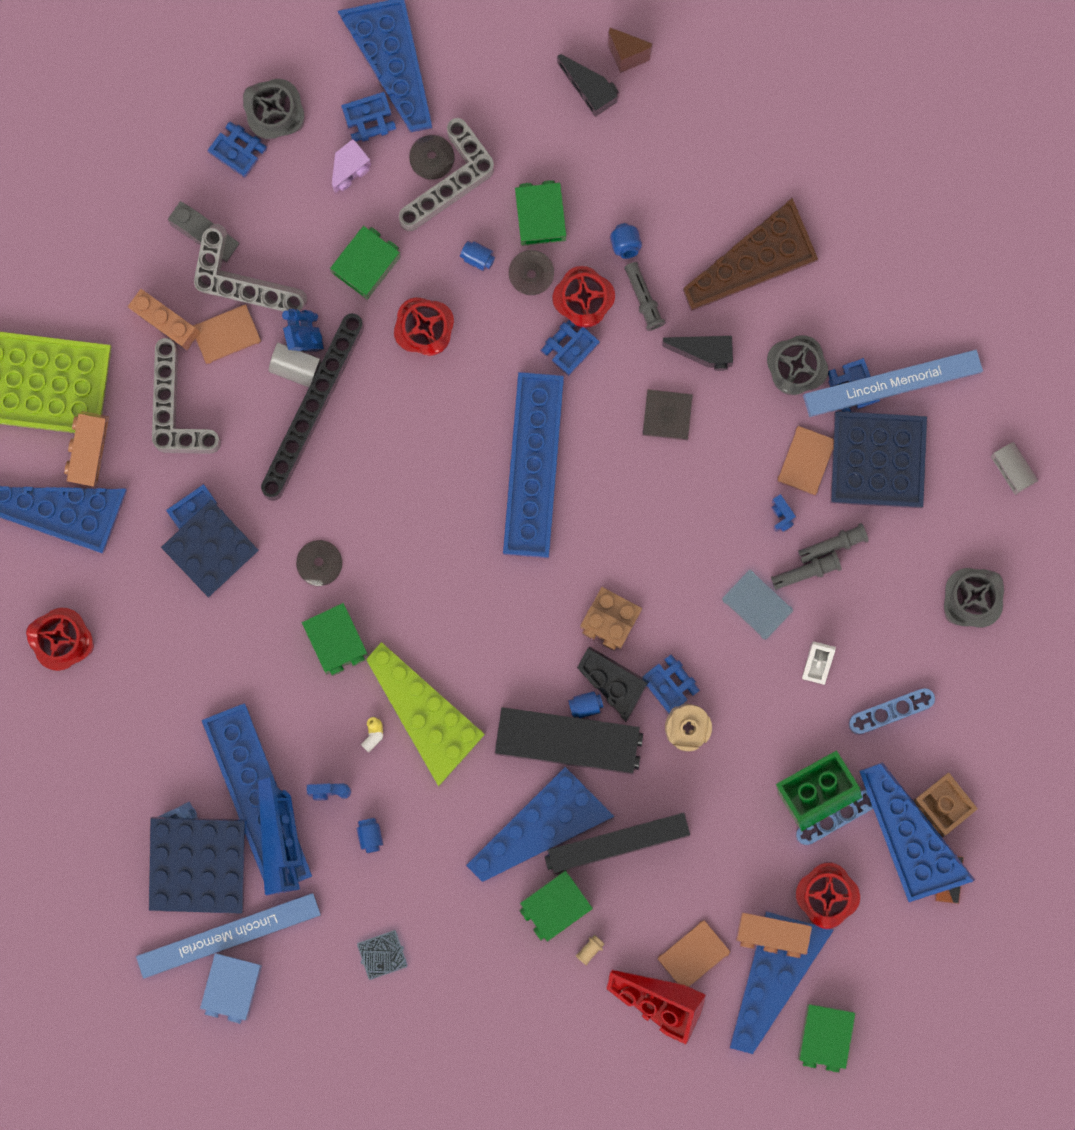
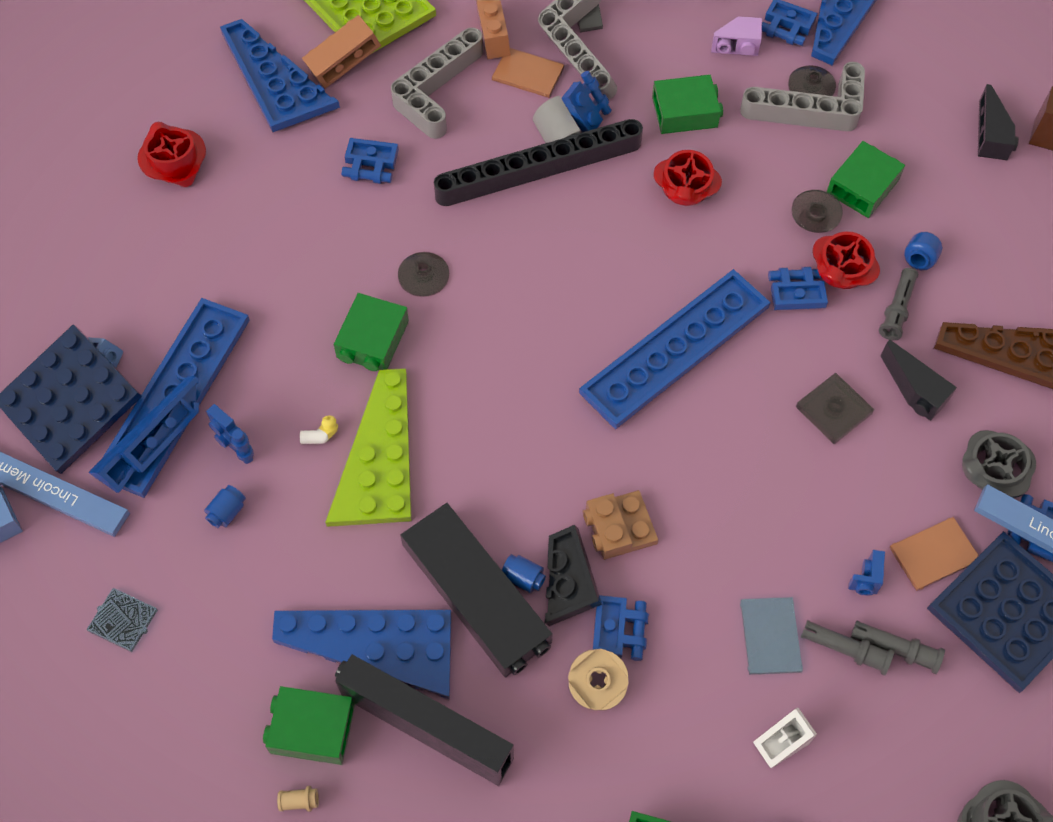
camera: 45 degrees right, 20 degrees down
(209, 548) = (351, 189): dark blue plate -> none
(477, 255) = (782, 166): blue brick -> none

